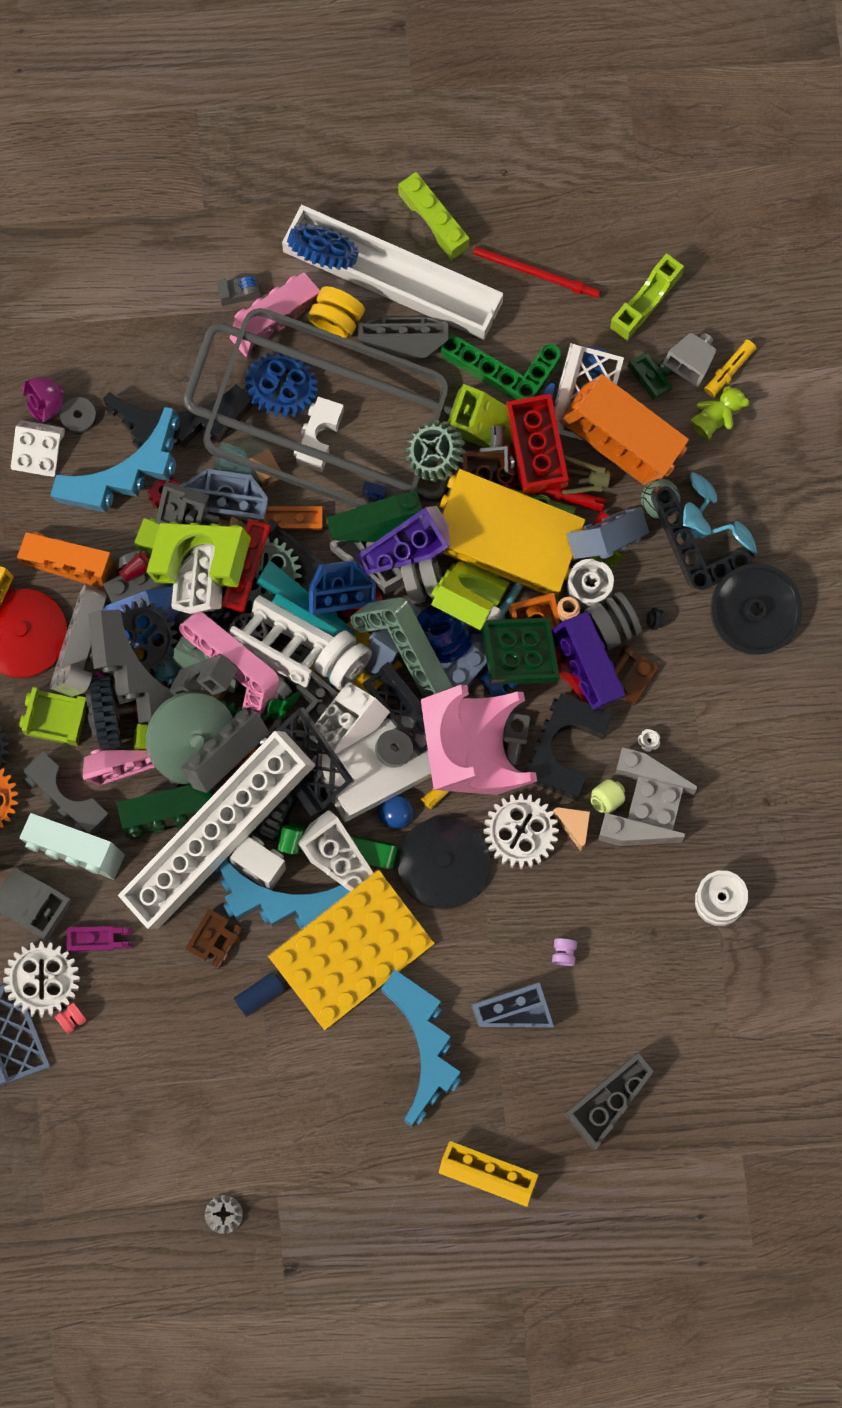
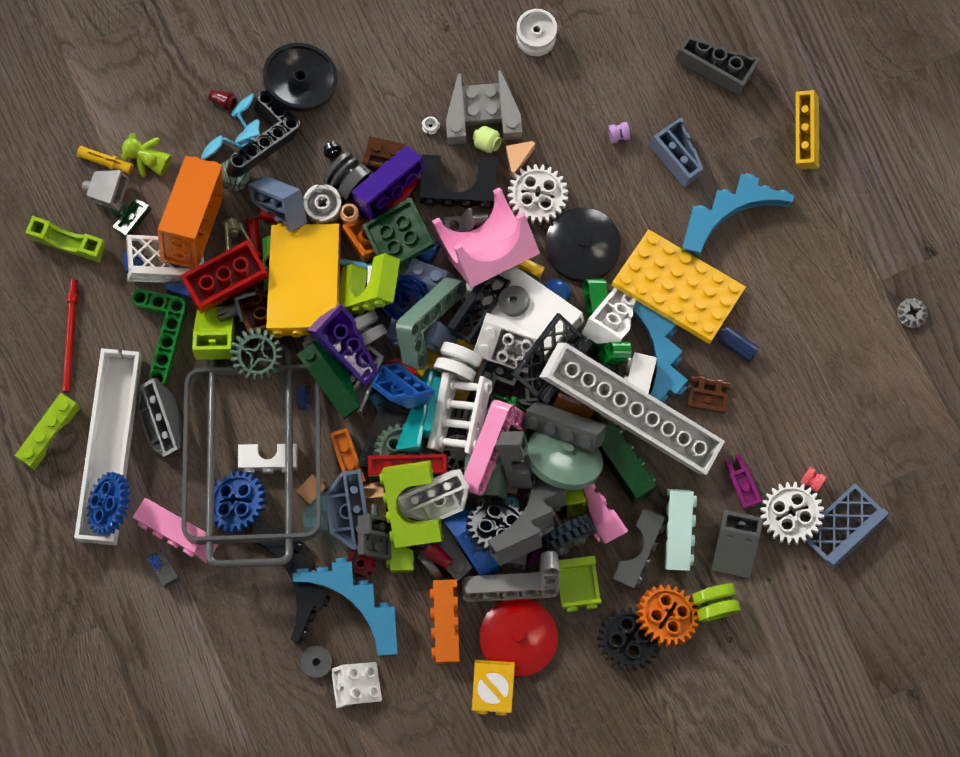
camera: 110 degrees left, 0 degrees up
(44, 398) = (313, 693): magenta cylinder -> none
(336, 312) = (160, 477): yellow wheel -> none
(759, 519) = (224, 99): none -> dark red cone

